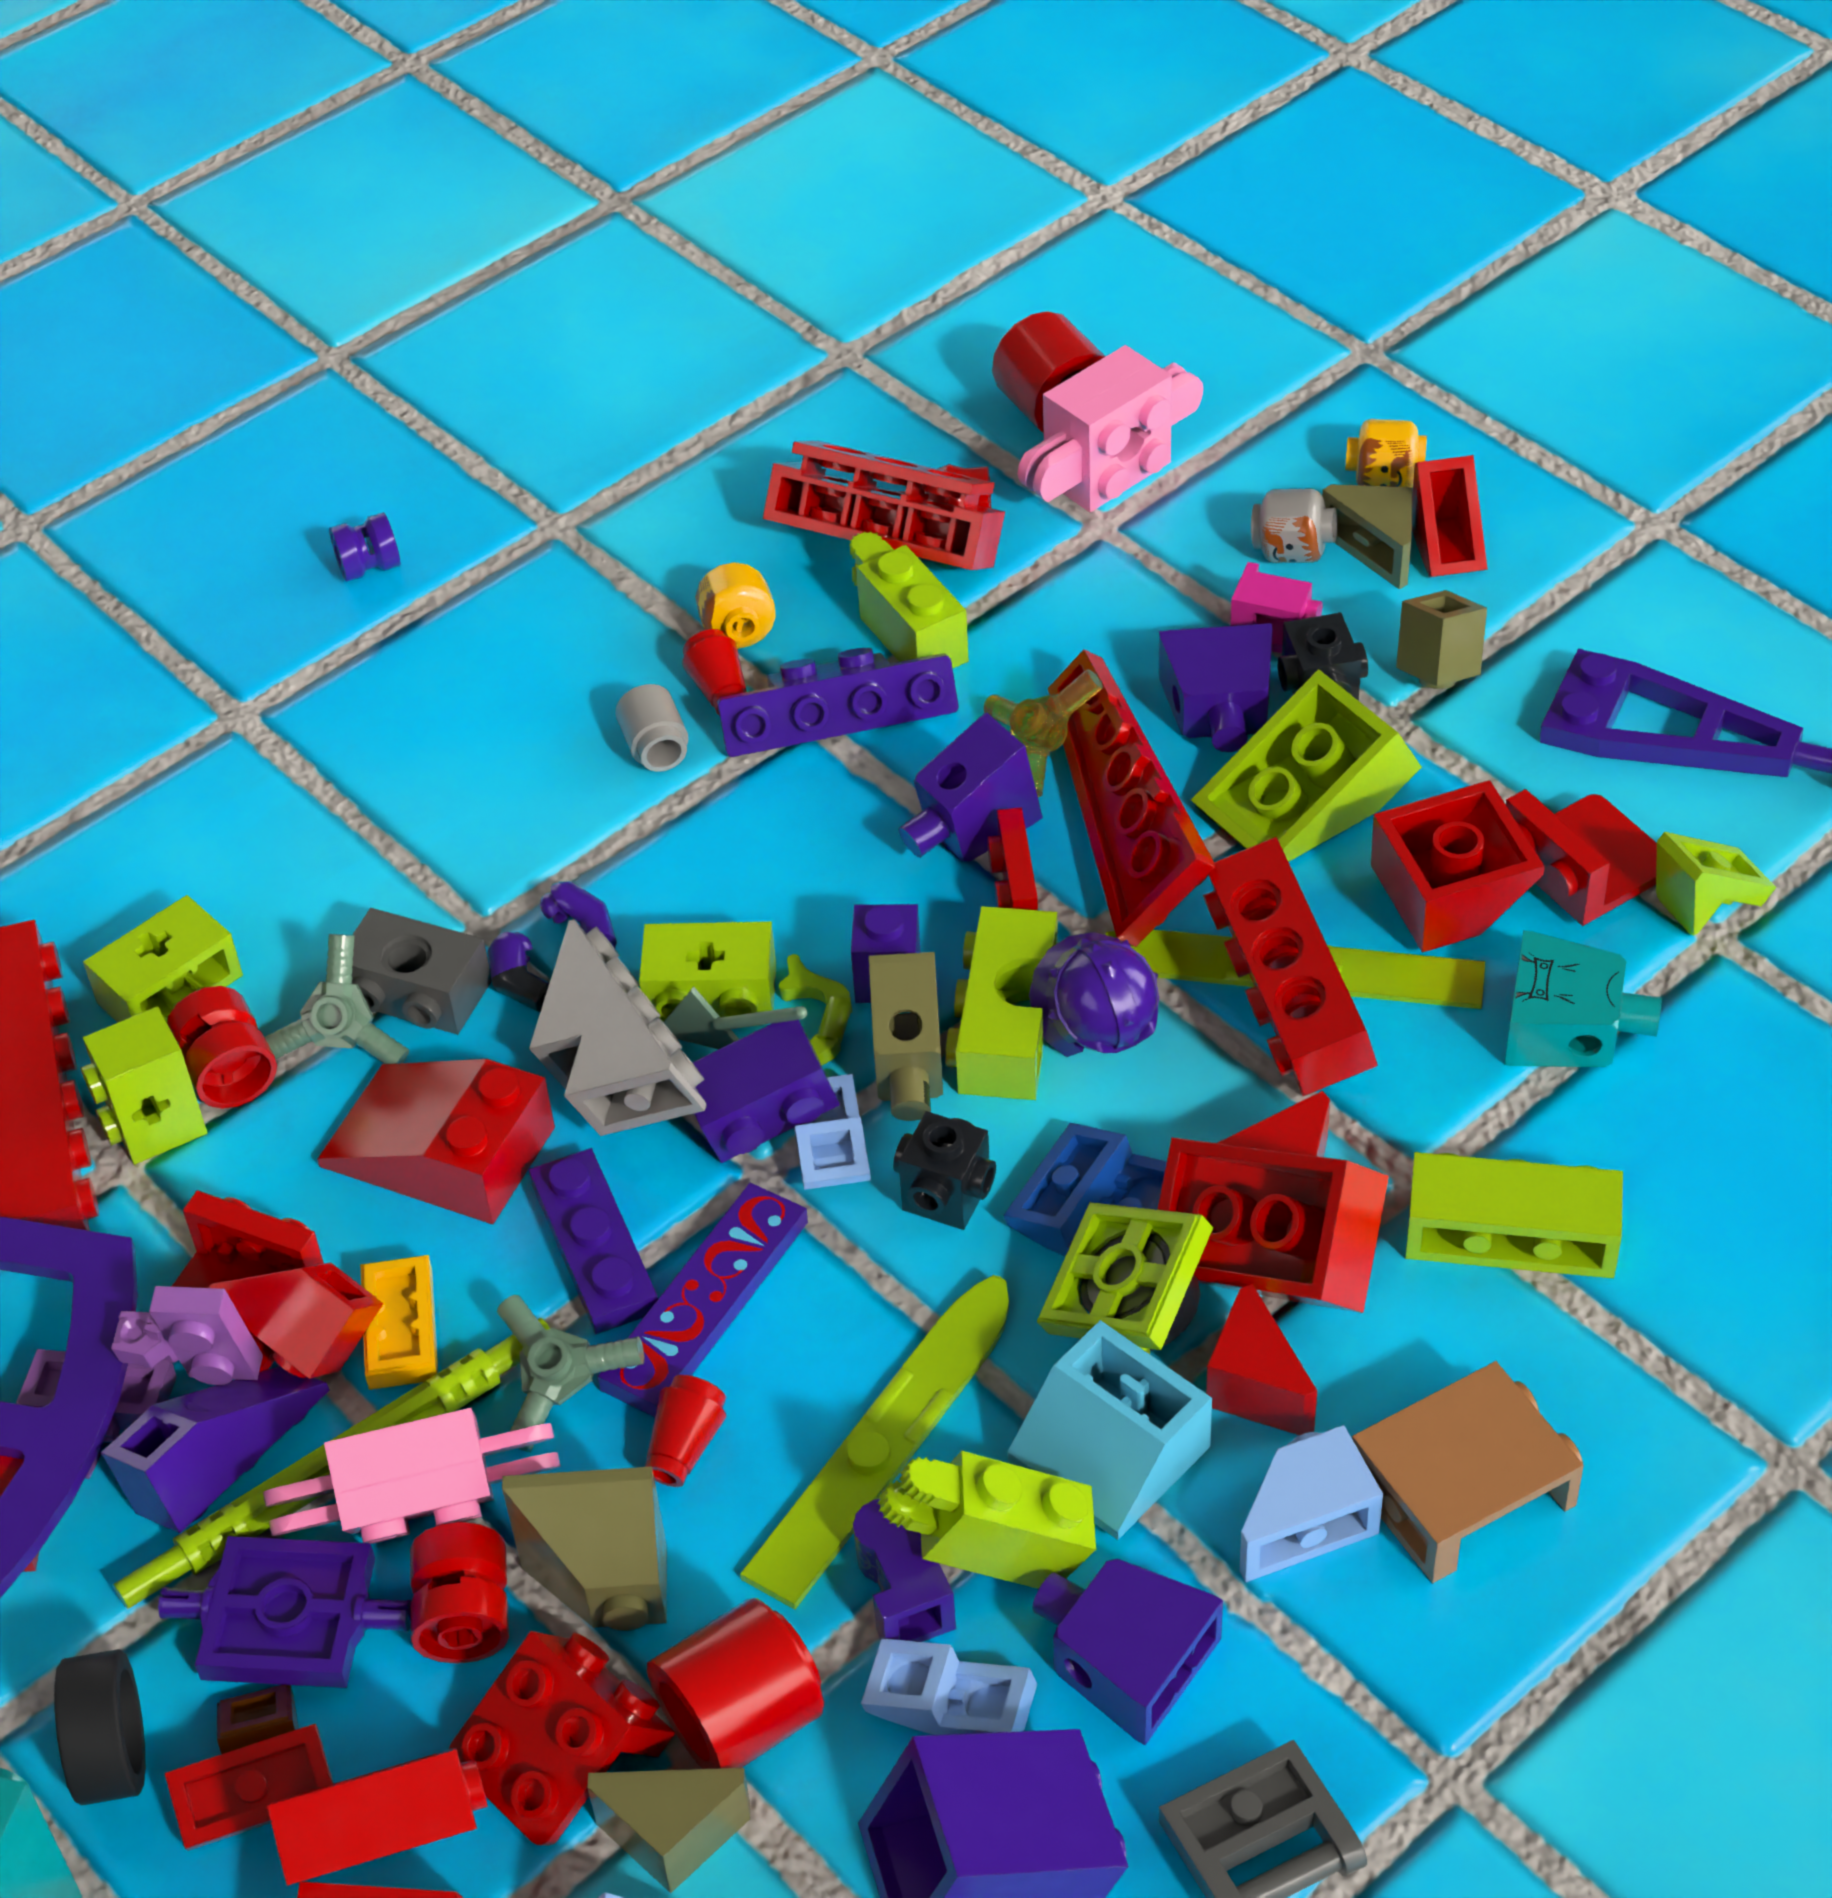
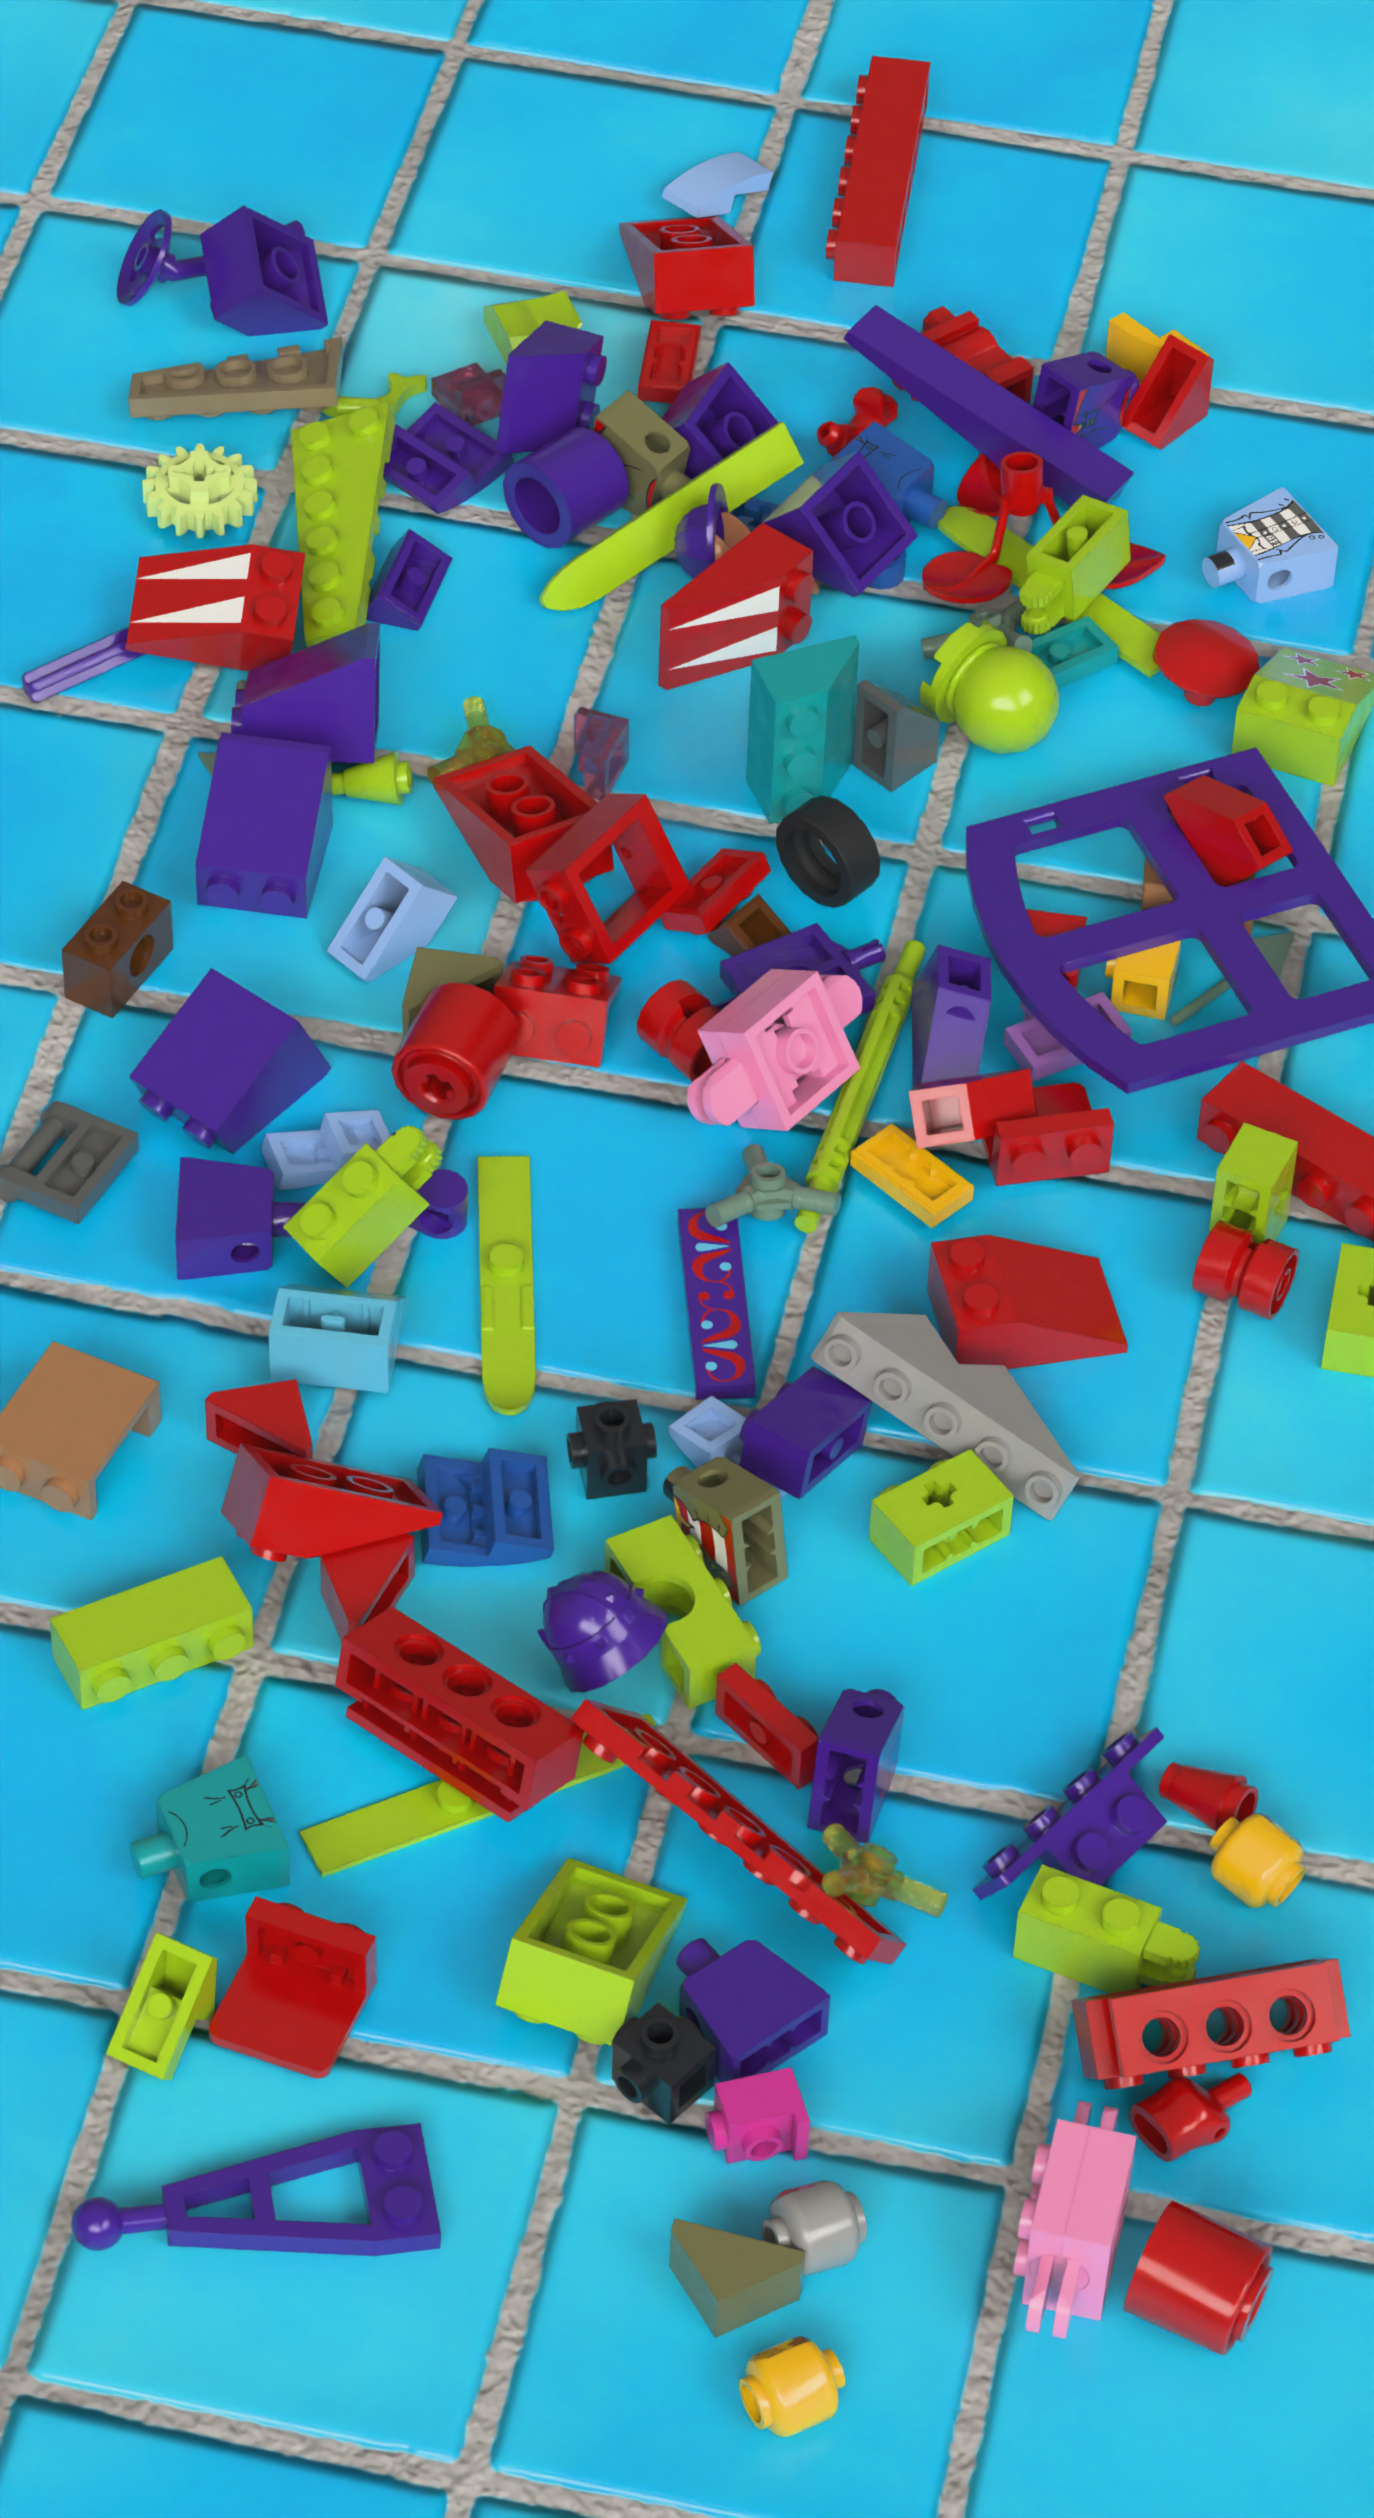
camera: 140 degrees right, 0 degrees up
(192, 1327) = (1002, 1022): medium lavender hinge -> none
(337, 1013) = (1187, 1336): sand green piece -> none
(419, 970) = (1172, 1404): dark grey brick -> none
(510, 973) = (1102, 1452): arm -> none
(571, 900) = (1100, 1532): dark purple arm -> none
(593, 1240) = (815, 1289): dark purple plate -> none
(593, 1542) = (626, 1088): olive slope -> none
(652, 727) = (1207, 1707): light grey brick -> none
(683, 1427) = (645, 1206): red cone -> none
(698, 1022) = (898, 1465): sand green piece -> none
(806, 984) = (826, 1565): lime helmet -> none
(880, 931) = (810, 1595): dark purple brick -> none
(1130, 1273) = (397, 1412): lime piece -> none
(1310, 1504) = (171, 1351): light blue slope -> none
(1441, 638) = (567, 2139): olive brick -> none
(1448, 516) = (668, 2322): red slope -> none
(1453, 863) = (398, 1882): red slope -> none

